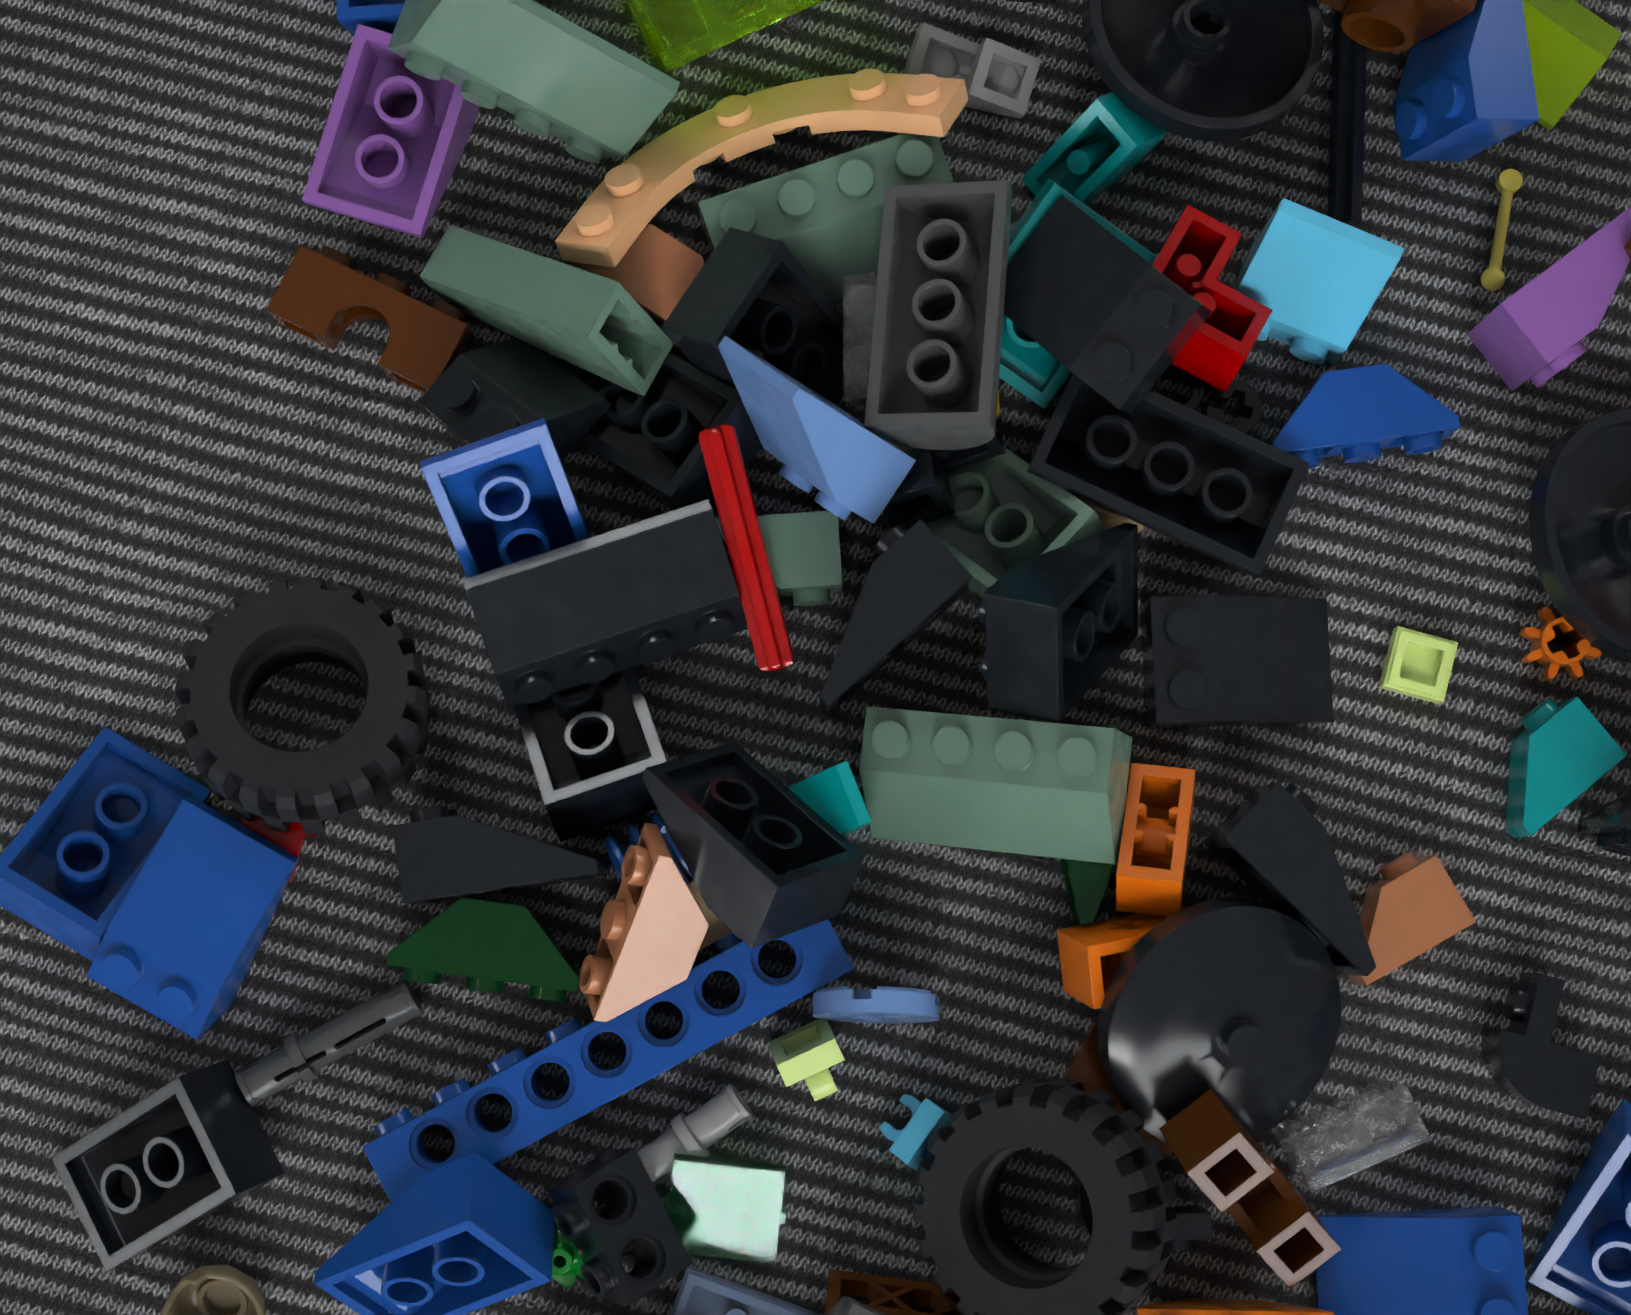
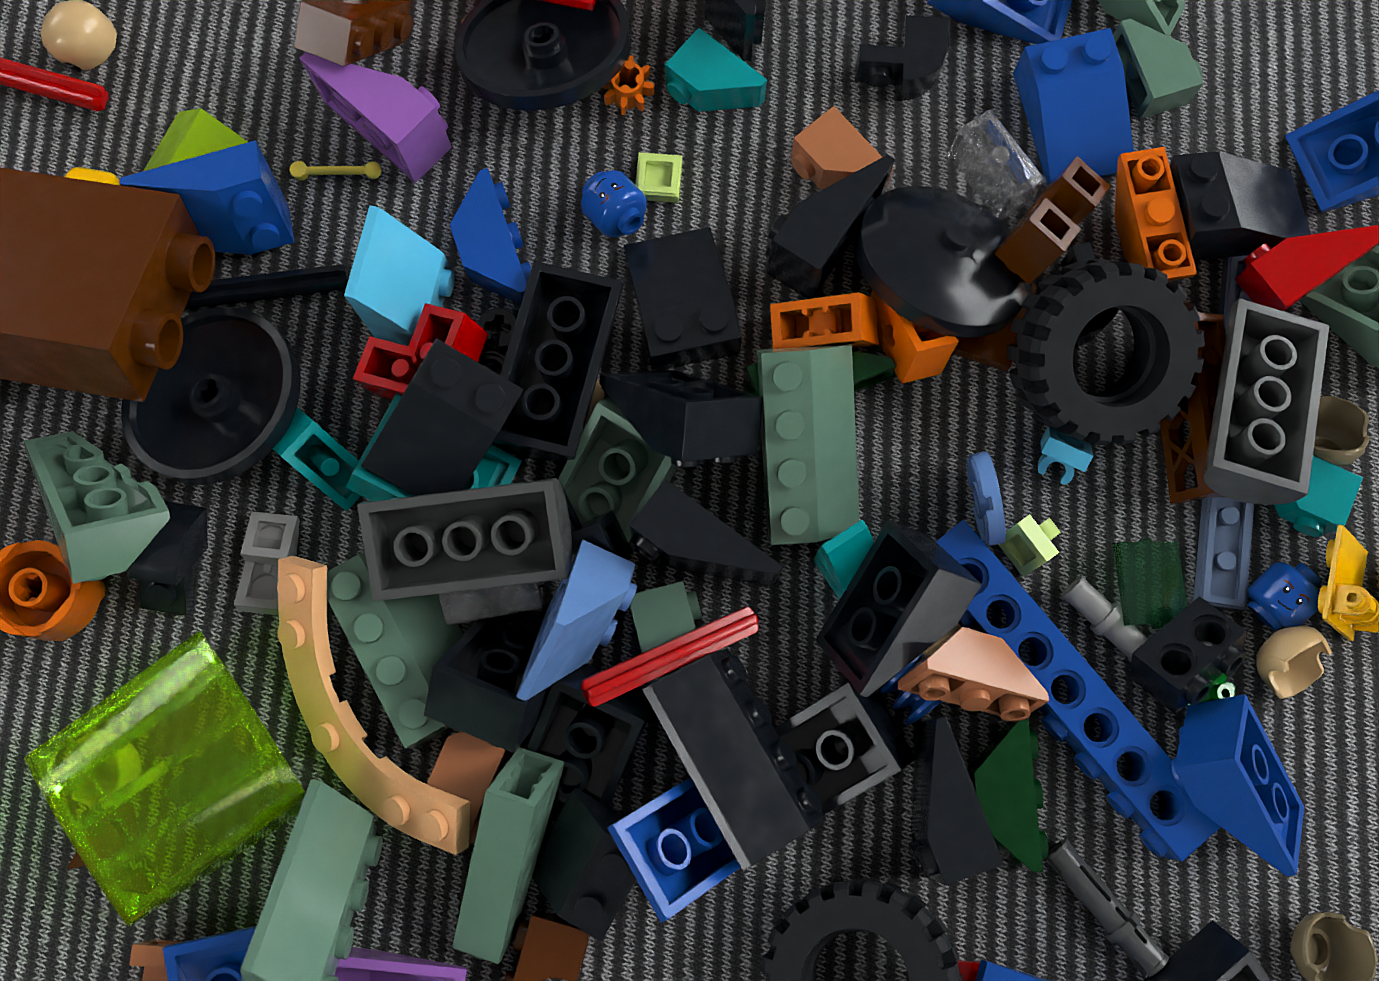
camera: 100 degrees left, 5 degrees down
(1385, 592) = (613, 203): none -> blue head

